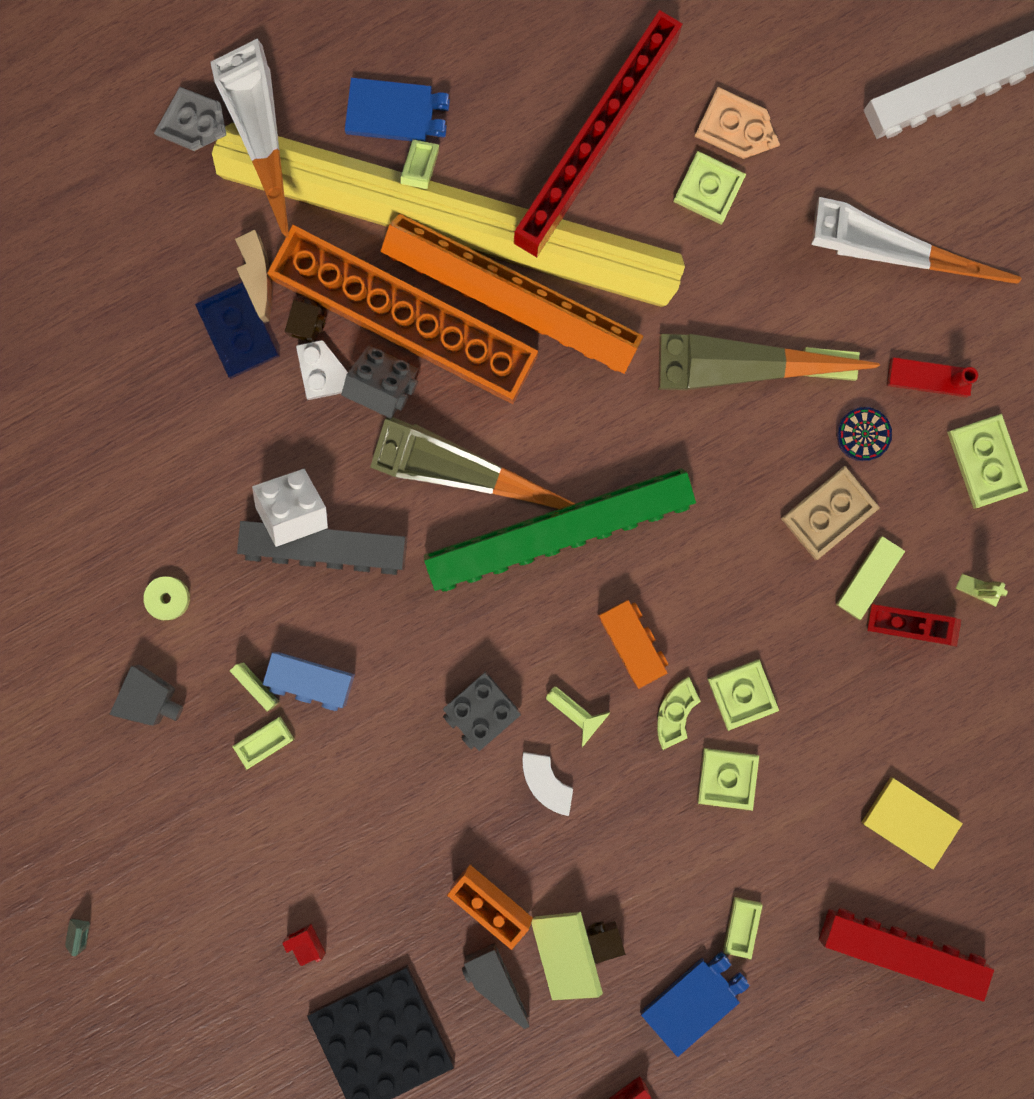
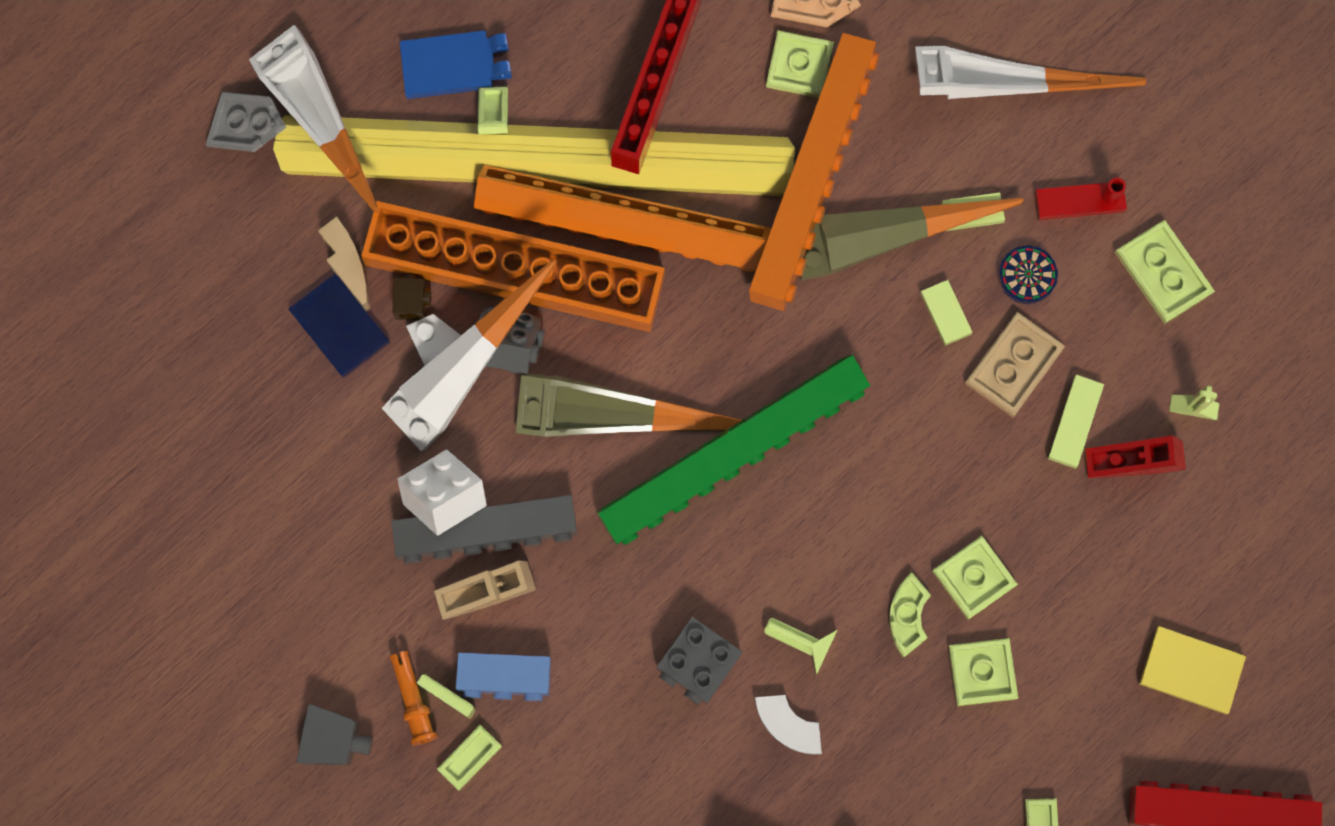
camera: 15 degrees left, 10 degrees down
(154, 598) = (314, 623): yellowish green piece -> none
(225, 693) = (415, 712): none -> orange pin
(305, 415) = (436, 391): none -> white plate
(310, 600) = (485, 589): none -> tan slope
(634, 643) = (843, 550): orange brick -> none
(696, 292) = (813, 173): none -> orange brick
(781, 451) = (946, 312): none -> yellowish green tile

